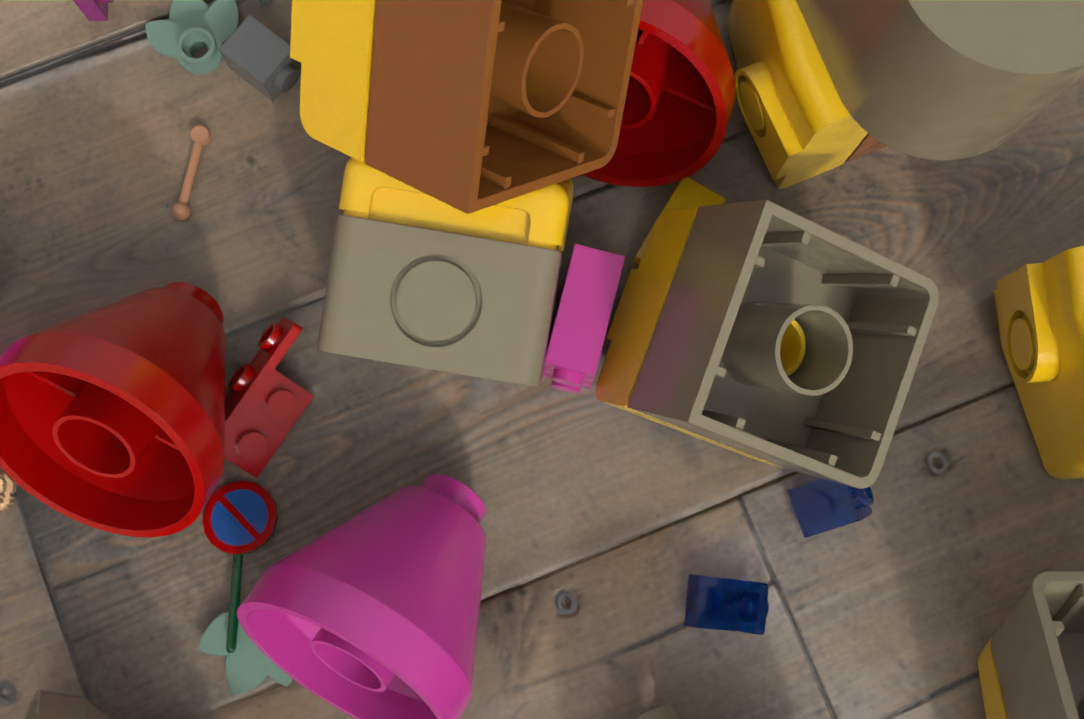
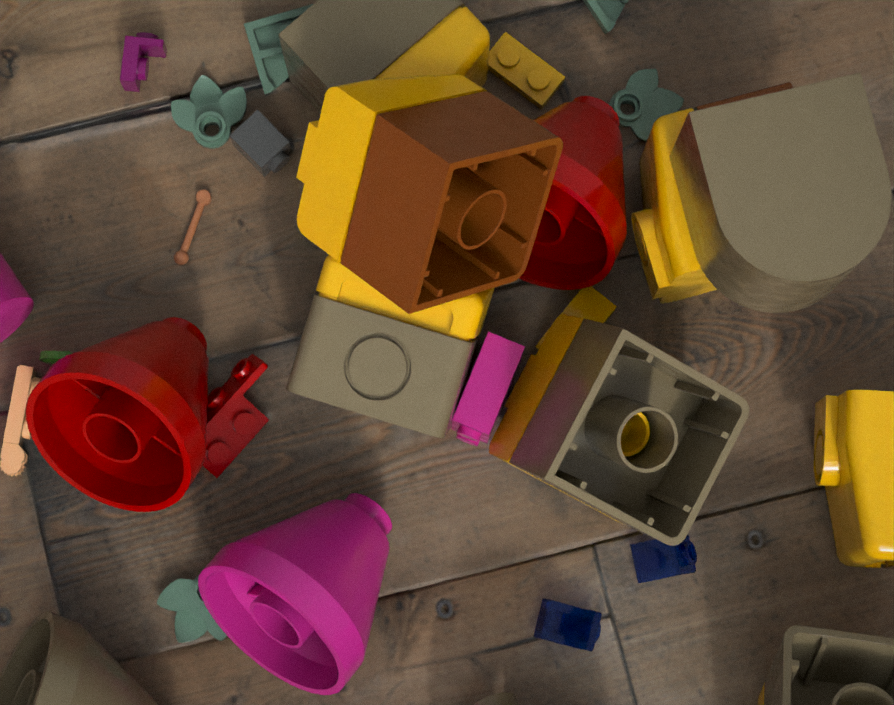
camera: 10 degrees right, 0 degrees up
(238, 523) = (199, 514): piece -> none

